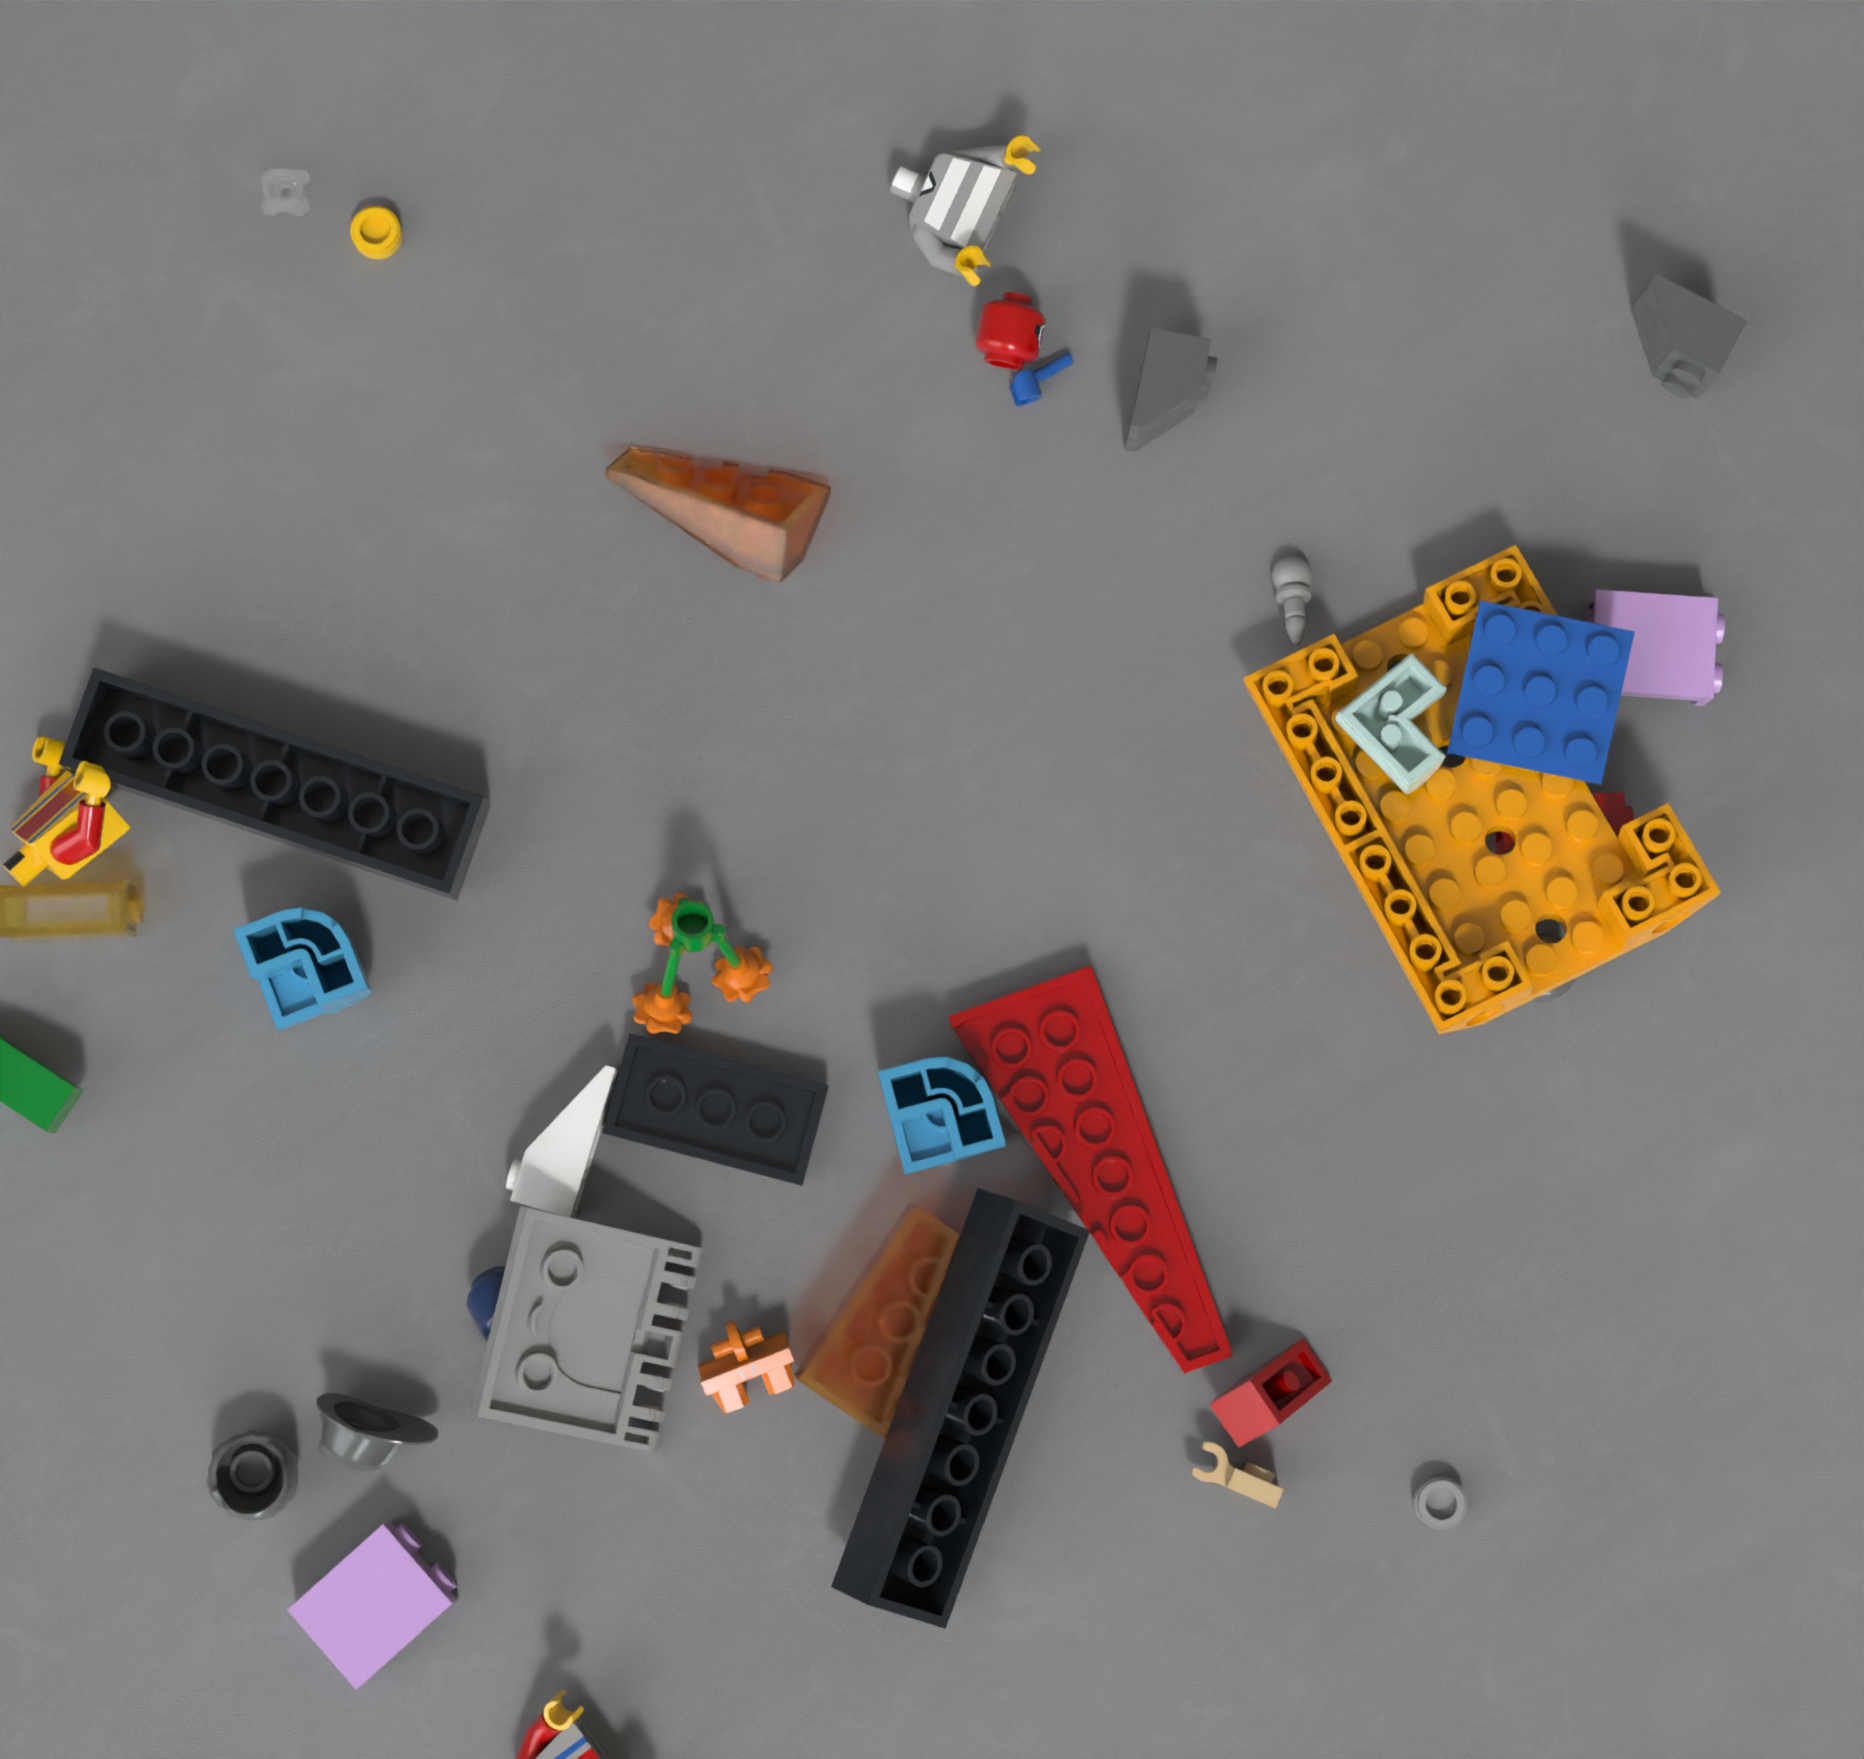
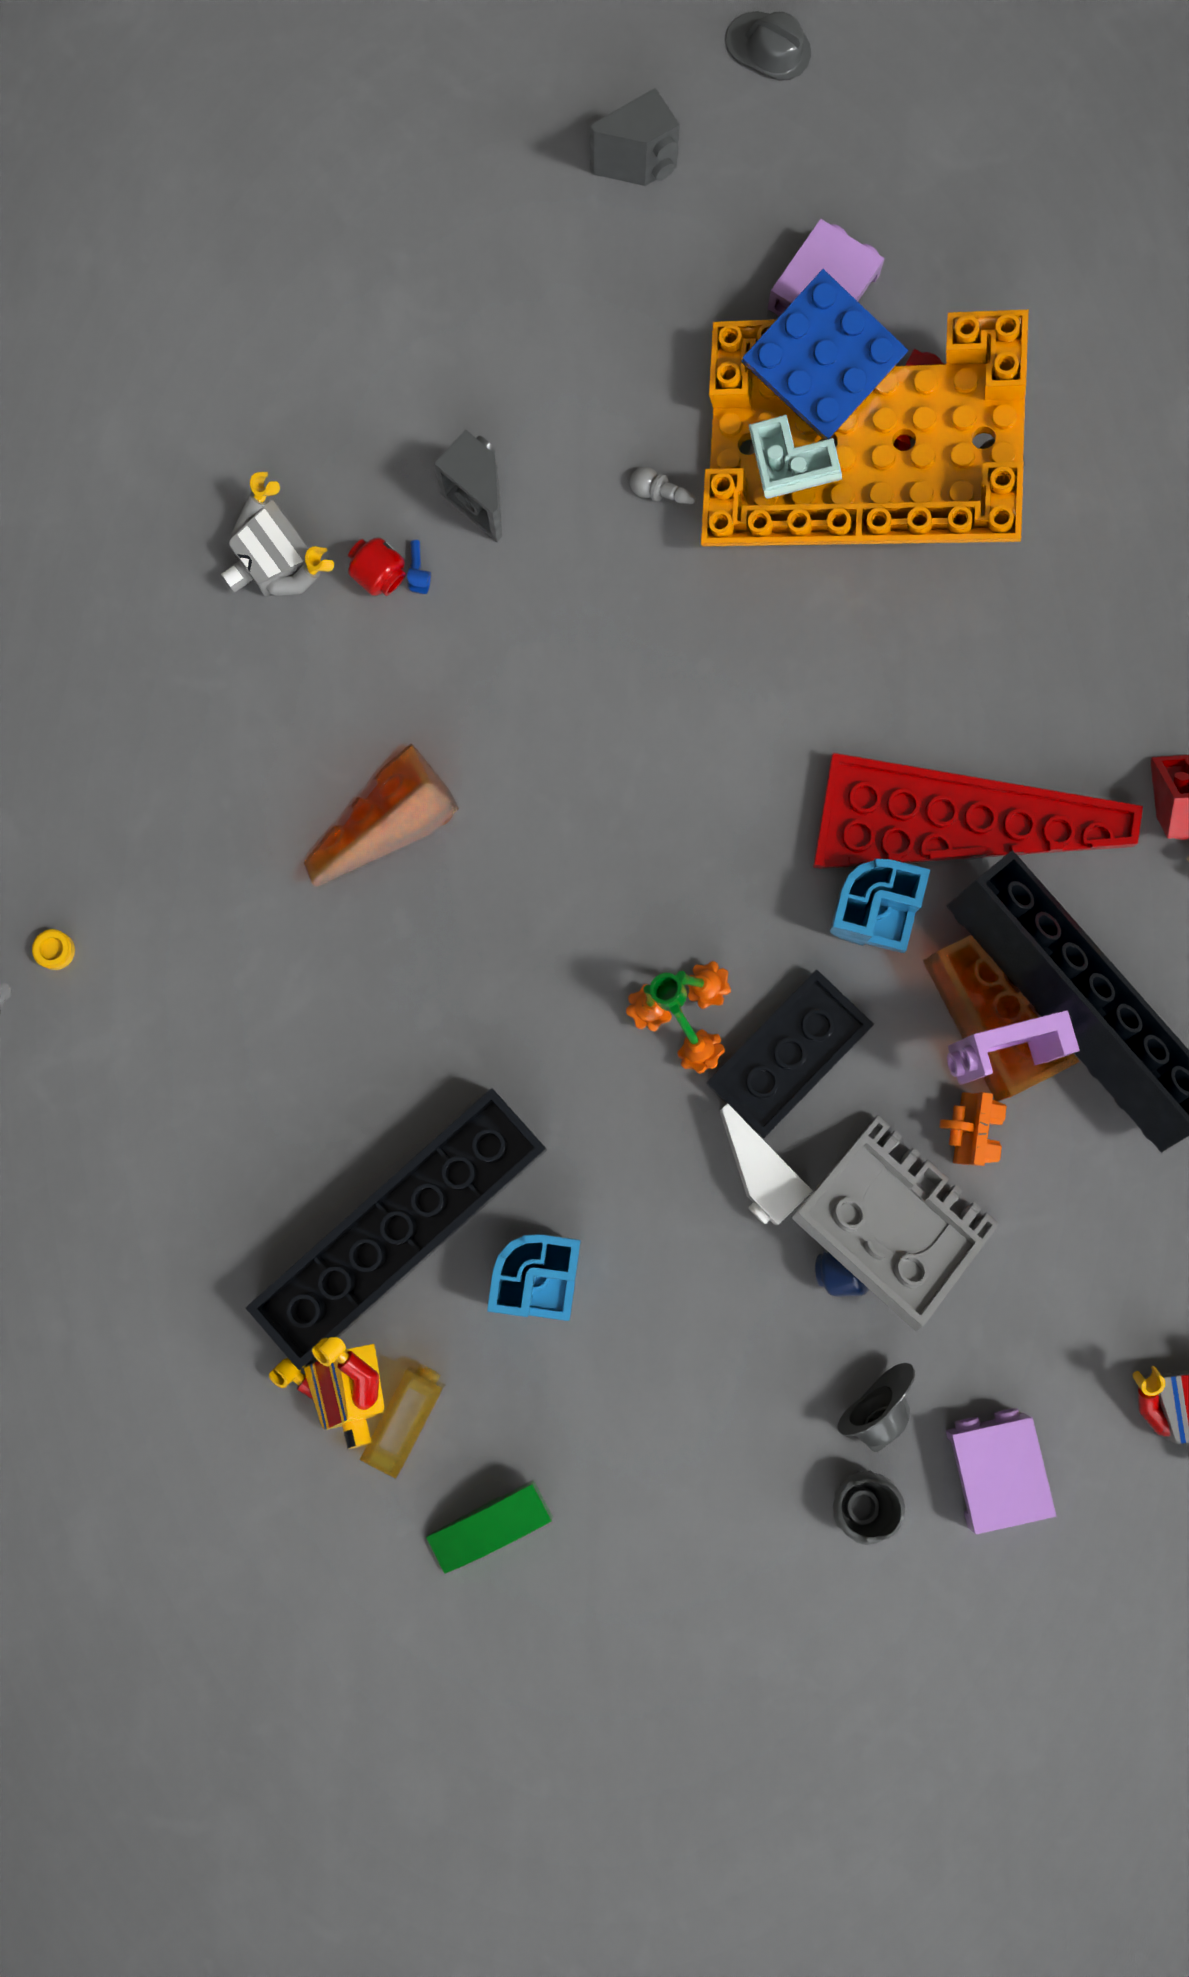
camera: 55 degrees left, 0 degrees up
(883, 1376) = (1047, 1038): none -> lavender panel

